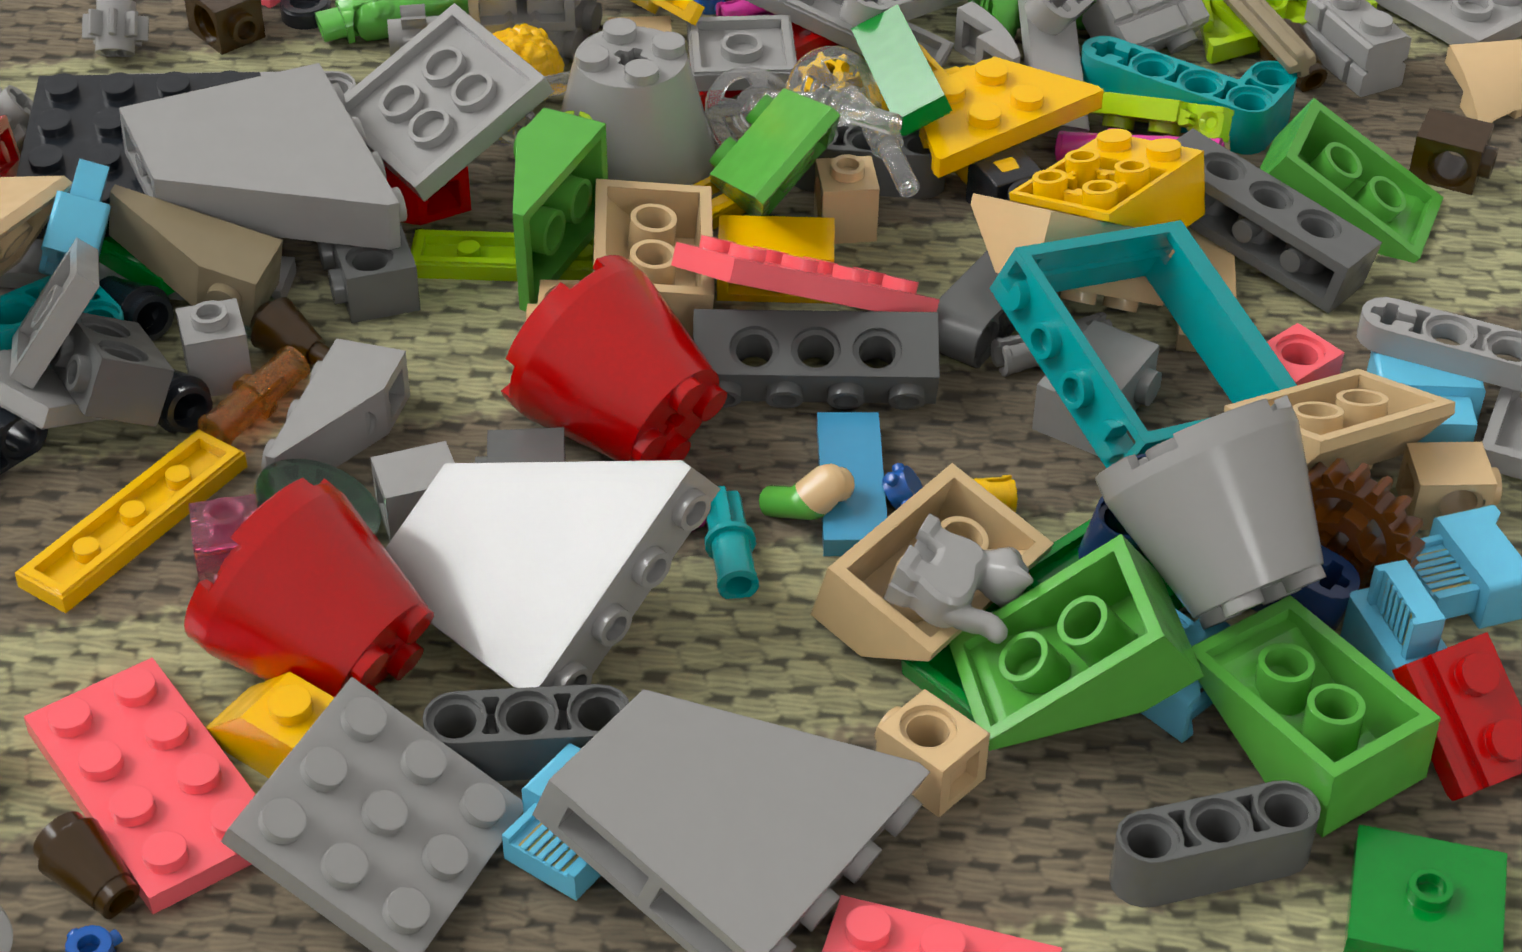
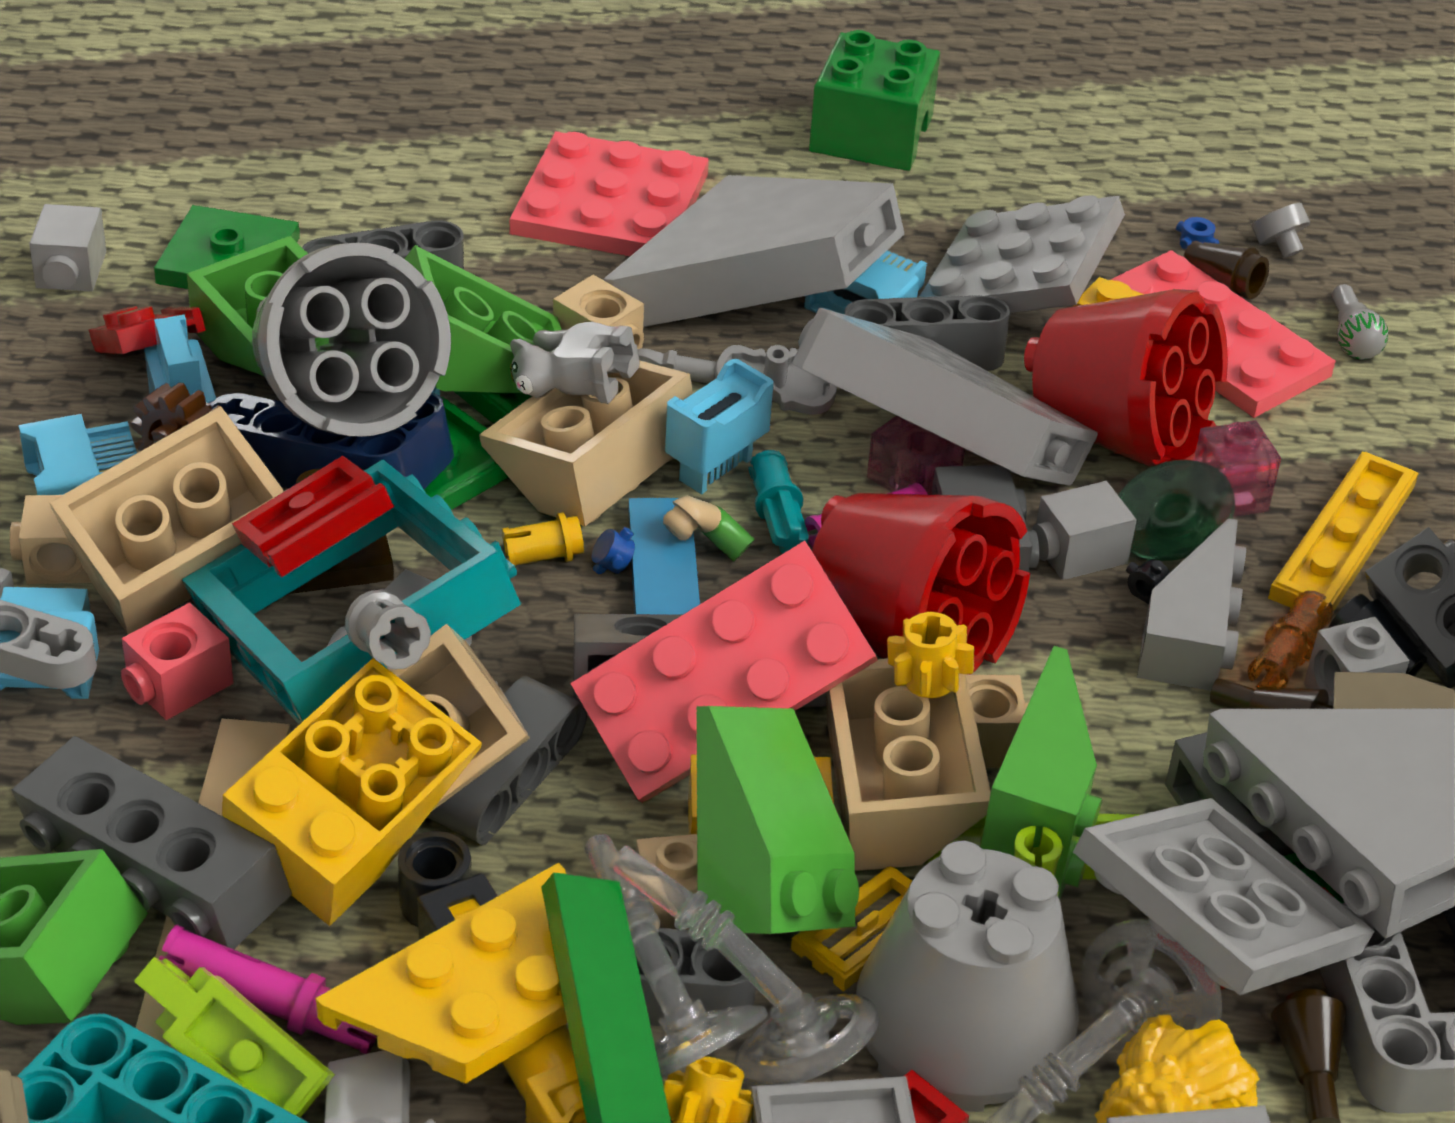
camera: 175 degrees right, 0 degrees up
(358, 457) = (1145, 578): none -> black piece
(630, 235) = (930, 655): none -> yellow gear
(759, 699) = (792, 386): none -> light grey piece
(788, 560) = (718, 424): none -> medium azure piece
(1100, 200) = (368, 622): none -> light grey bush
(1196, 369) = (312, 515): none -> red plate

